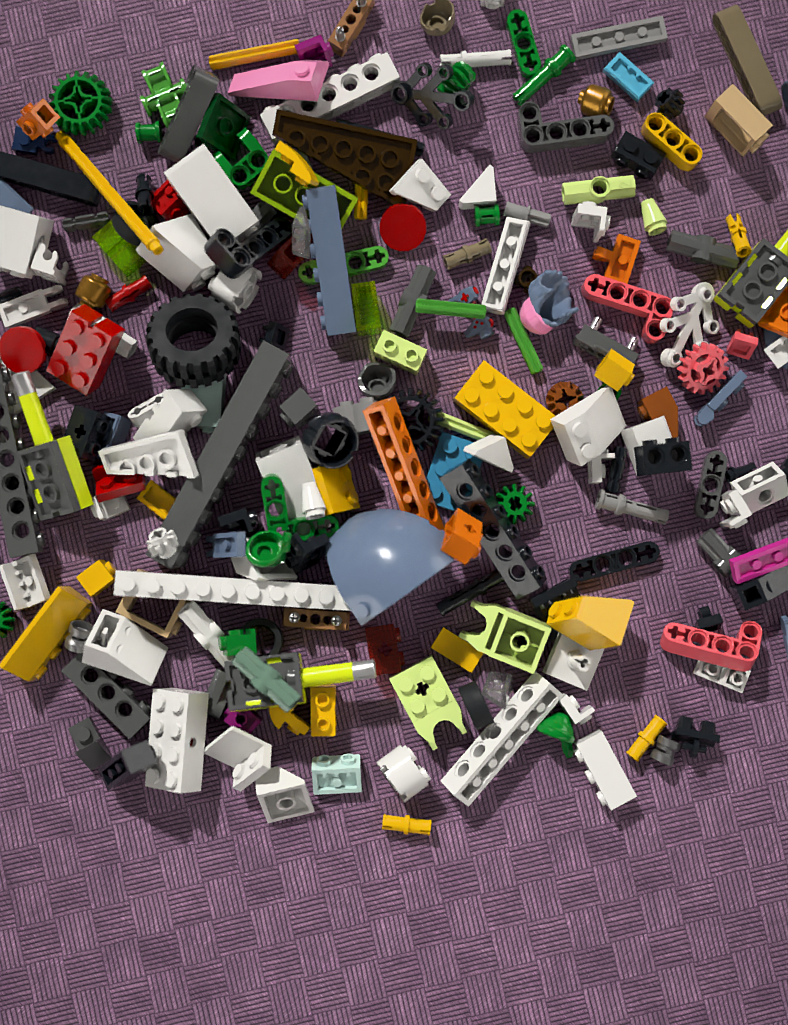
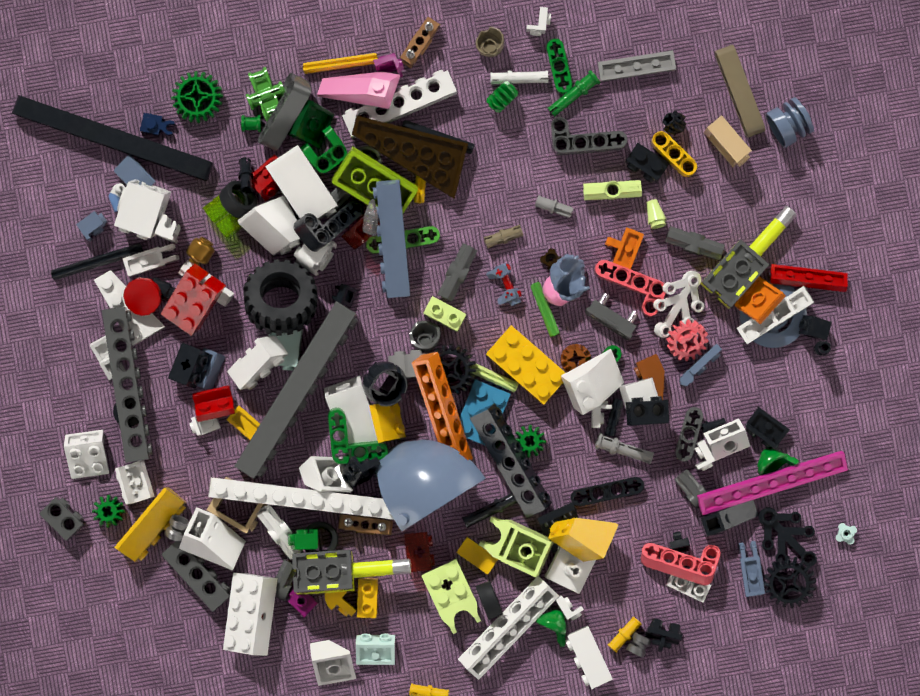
camera: 10 degrees right, 0 degrees up
(37, 119) = (163, 111): orange brick -> none
(51, 464) = (161, 389): piece -> none
(85, 221) = (196, 193): dark grey axle -> none
(90, 744) = (179, 614): dark grey slope -> none
(97, 577) = (193, 481): yellow brick -> none
(110, 194) = (220, 177): yellow piece -> none
(128, 293) = (228, 253): red pin -> none
(128, 765) = (211, 631): black brick -> none
(144, 410) = (237, 350): white beam -> none
(151, 456) = (242, 388): white wing -> none
(162, 543) = (249, 458): white gear -> none
(227, 545) = (298, 462): sand blue hinge -> none
(236, 518) = (305, 442): black bracket -> none
(244, 753) = (301, 627): white bracket -> none
(266, 679) = (324, 569): sand green piece -> none
(268, 548) = (331, 466): green hat -> none
(298, 409) = (360, 356): dark grey brick -> none
(299, 167) = (374, 168): yellow slope -> none
(312, 502) = (368, 432): white cone -> none
(366, 308) = (419, 285): clear neon green piece -> none
(402, 227) = (452, 212): red tile -> none
(403, 772) = (428, 650): white brick -> none
(421, 187) = (469, 181): white wing -> none
(429, 96) = (480, 109): black plant -> none
(450, 308) = (486, 281): bright green axle -> none
(462, 537) = (484, 466): orange brick -> none
(480, 219) = (521, 205): green bush -> none
(481, 192) = (517, 187): white slope -> none
(492, 450) = (514, 397): white slope -> none
(498, 688) = (508, 587): clear slope -> none
(505, 265) = (533, 247): white brick -> none
(591, 216) = (603, 212): white bracket -> none
(596, 100) = (615, 117): pearl gold head -> none
(615, 370) = (615, 339): yellow brick -> none
(628, 77) = (642, 98): medium azure plate -> none
(738, 236) = (722, 235): yellow pin -> none
(742, 345) = (721, 322): coral tile -> none

